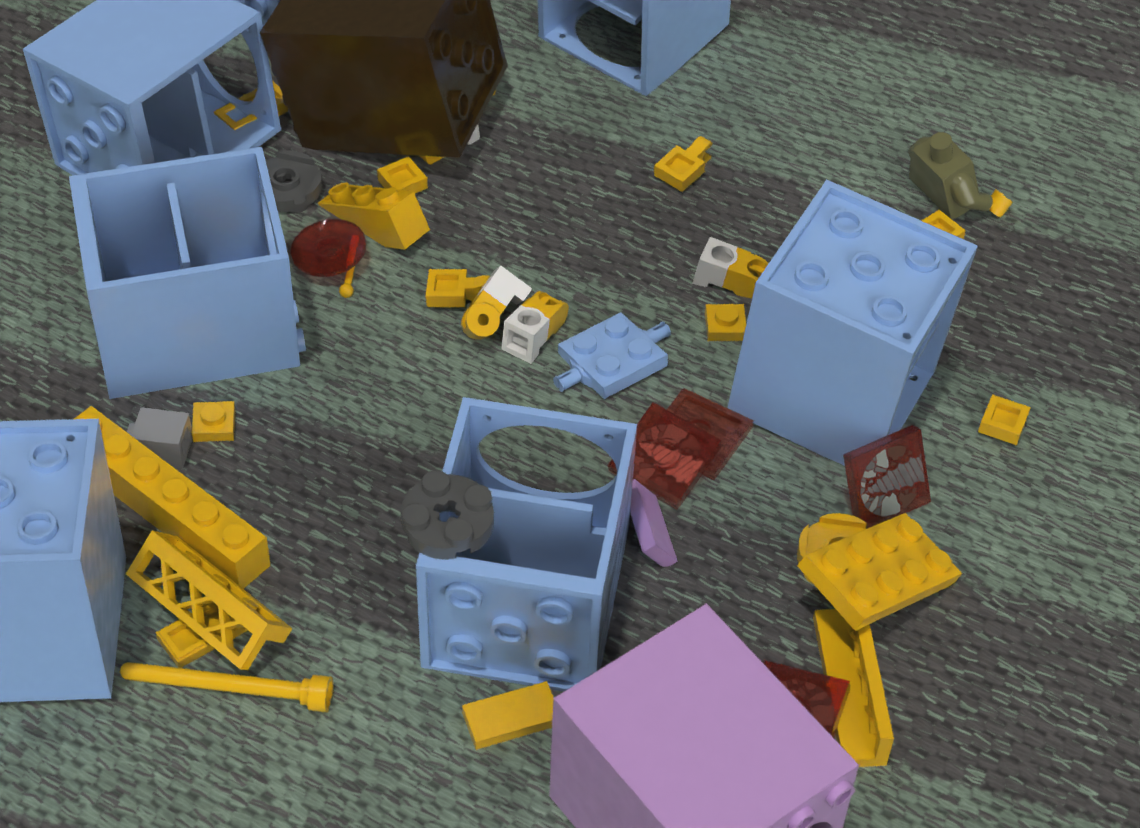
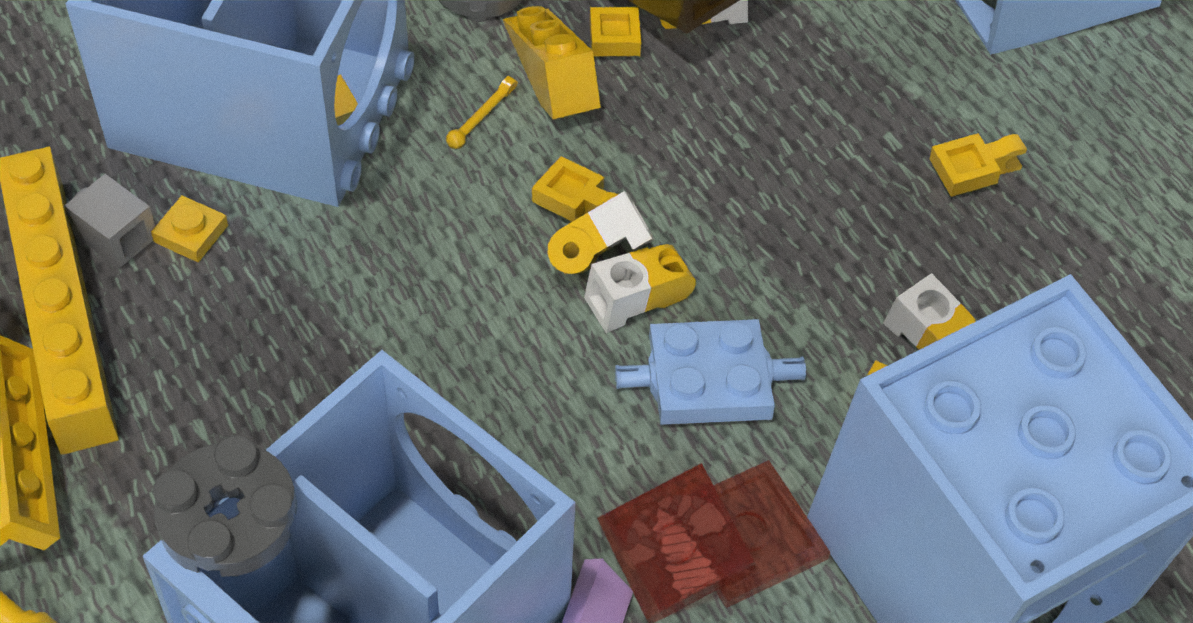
camera: 30 degrees right, 5 degrees up
(328, 247) = (465, 78): clear red dish -> none

